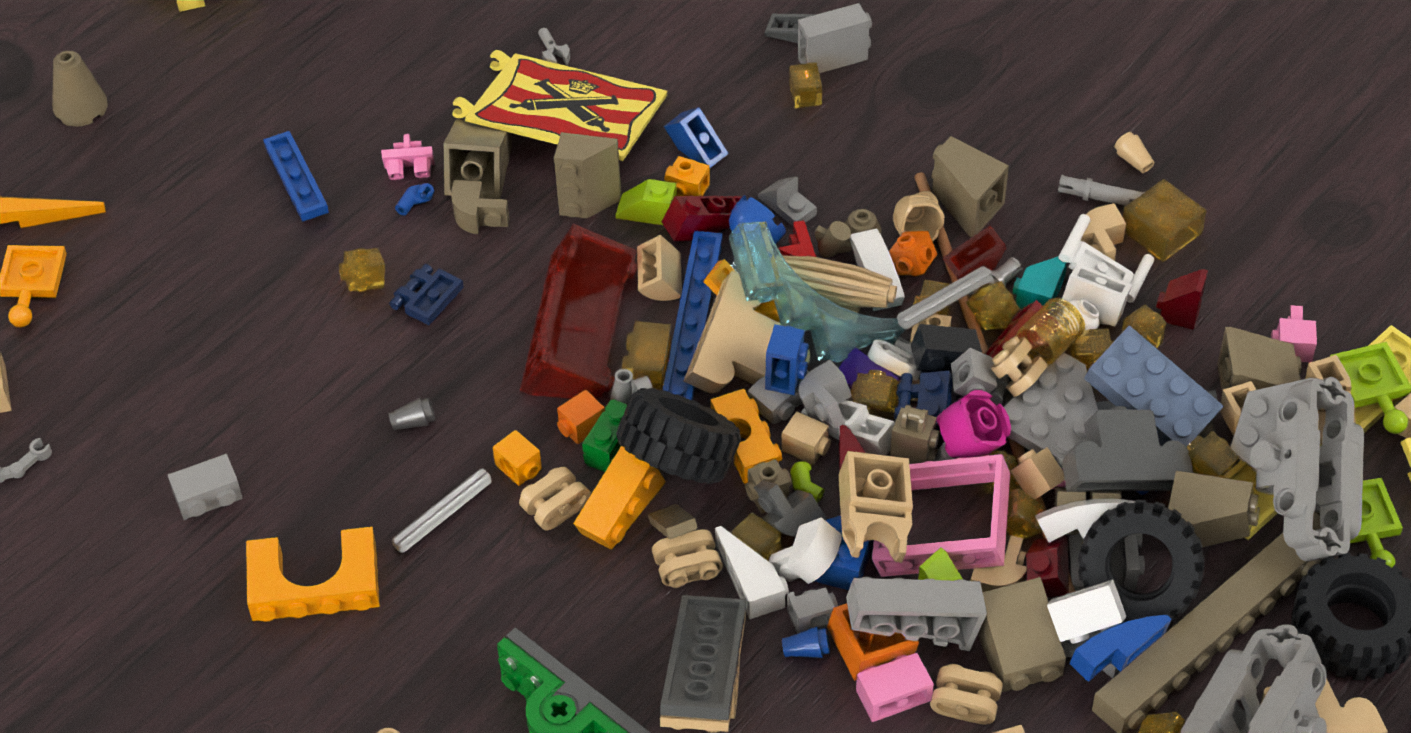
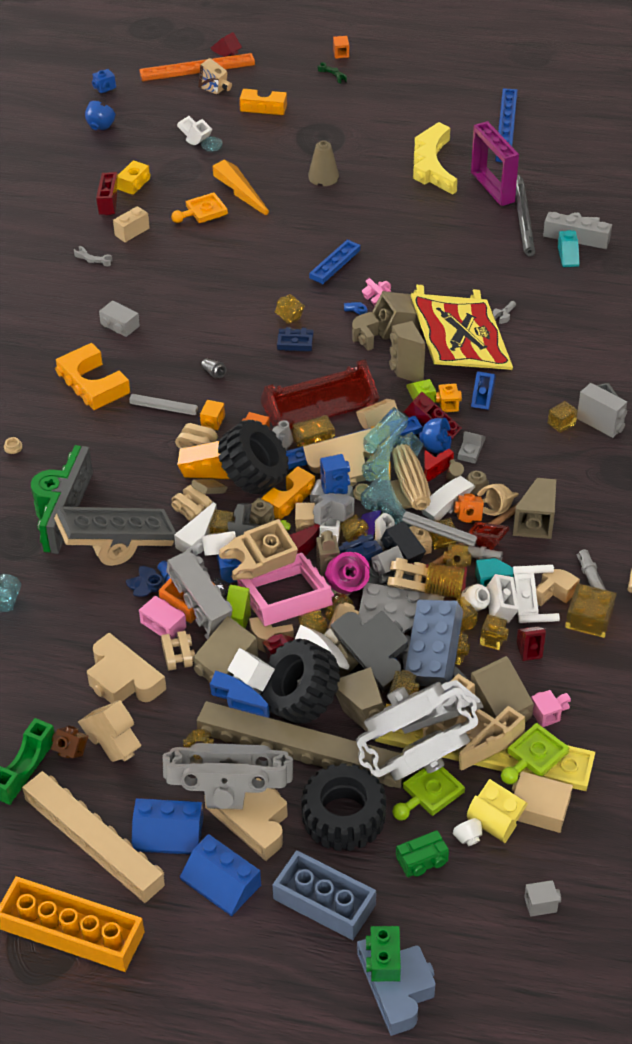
camera: 60 degrees right, 5 degrees down
(799, 685) = (146, 582): none -> dark blue plate

